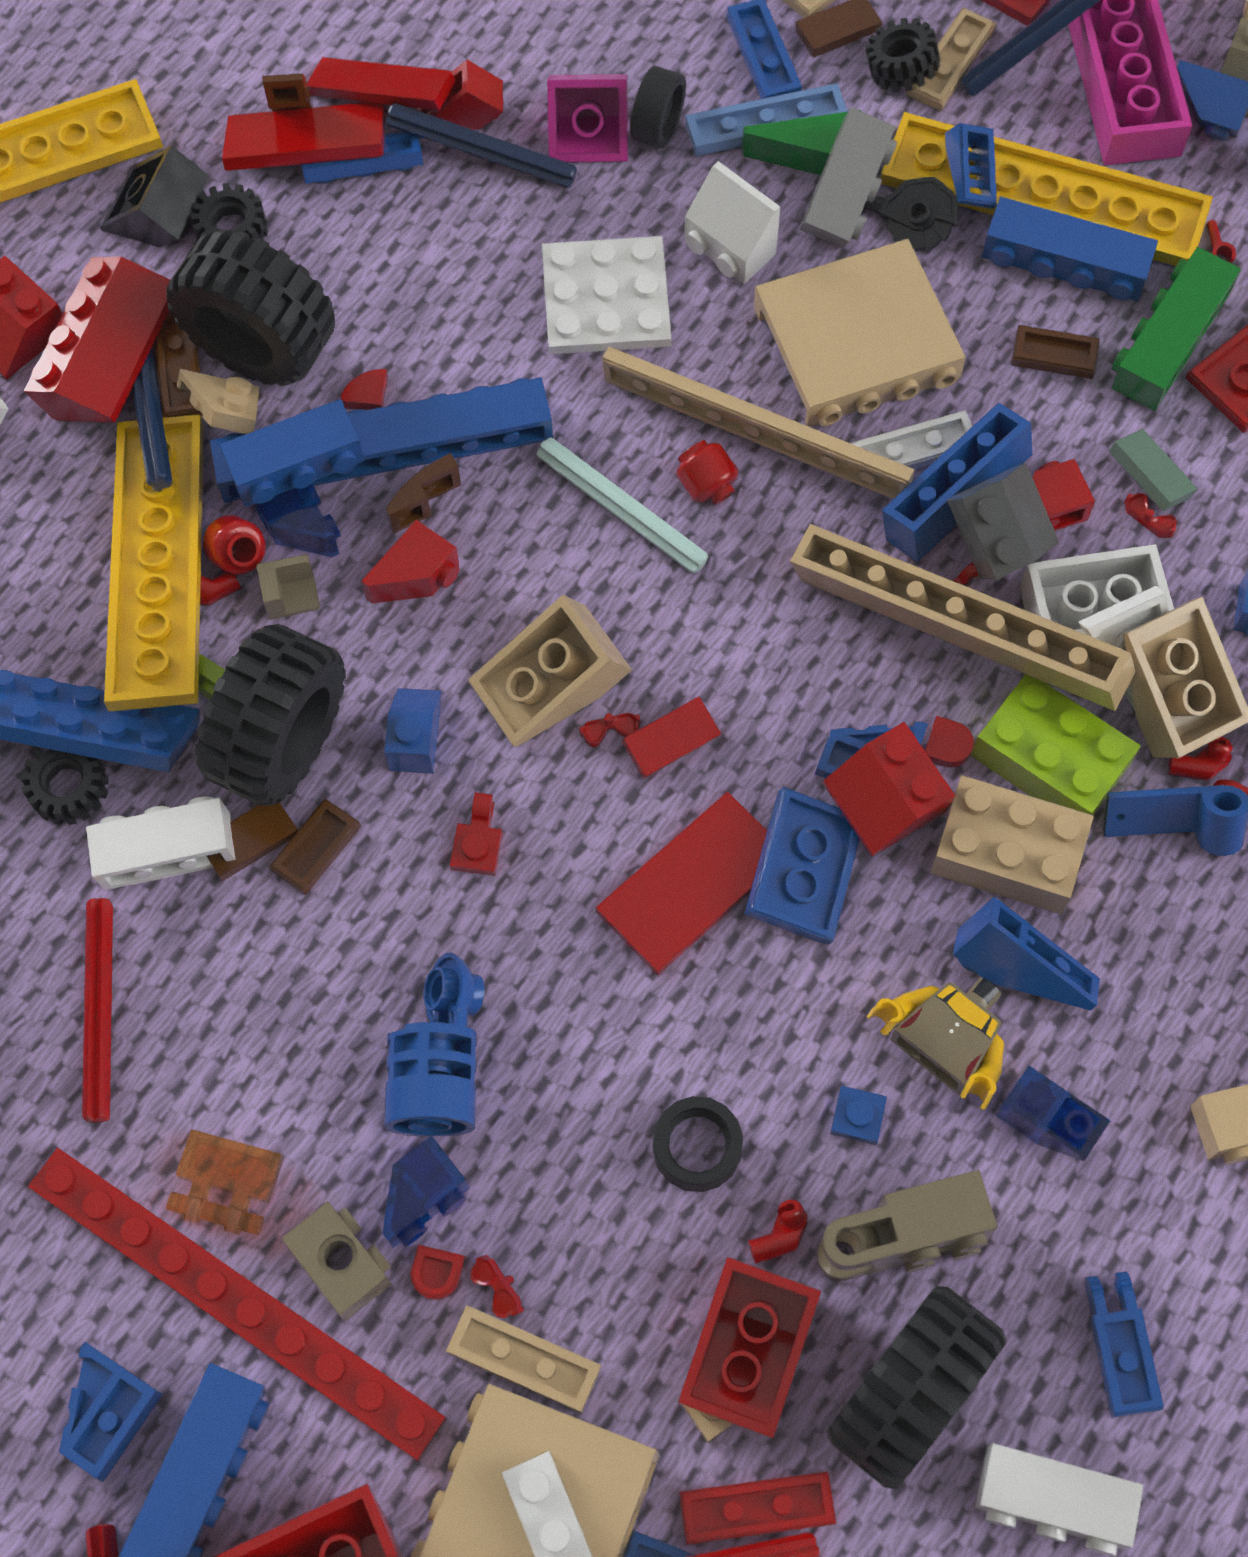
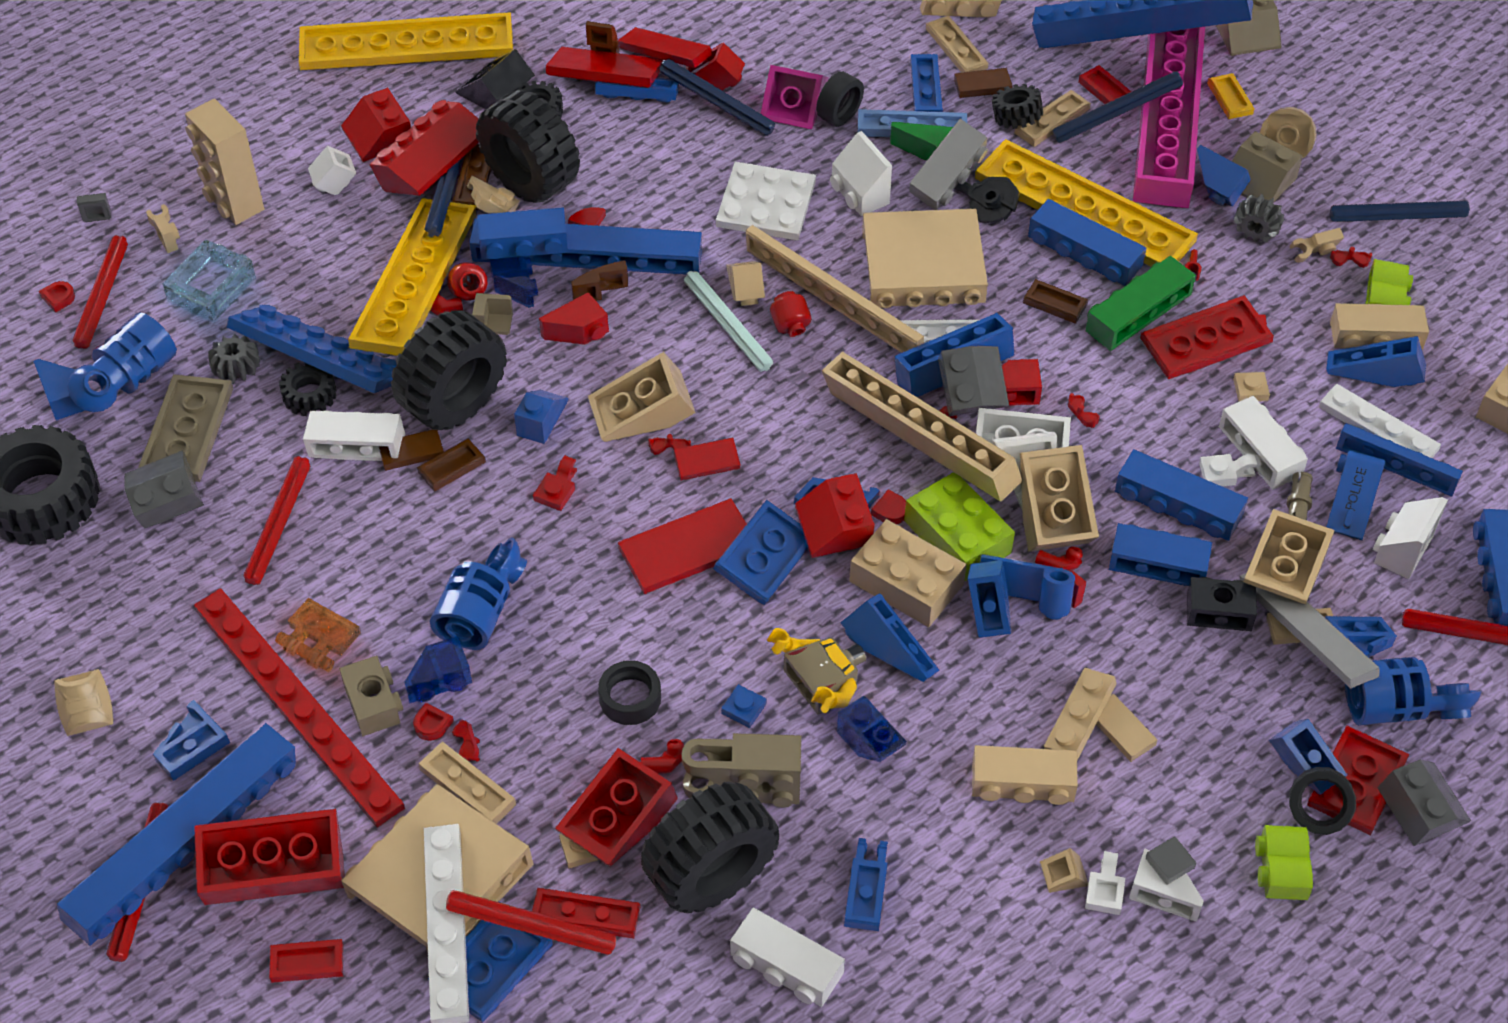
camera: 15 degrees right, 15 degrees down
(627, 435) = (746, 282): none -> tan slope
(983, 155) = (1047, 163): blue slope -> none
(1138, 854) = (990, 598): none -> blue slope
(1153, 470) = (1094, 383): sand green tile -> none

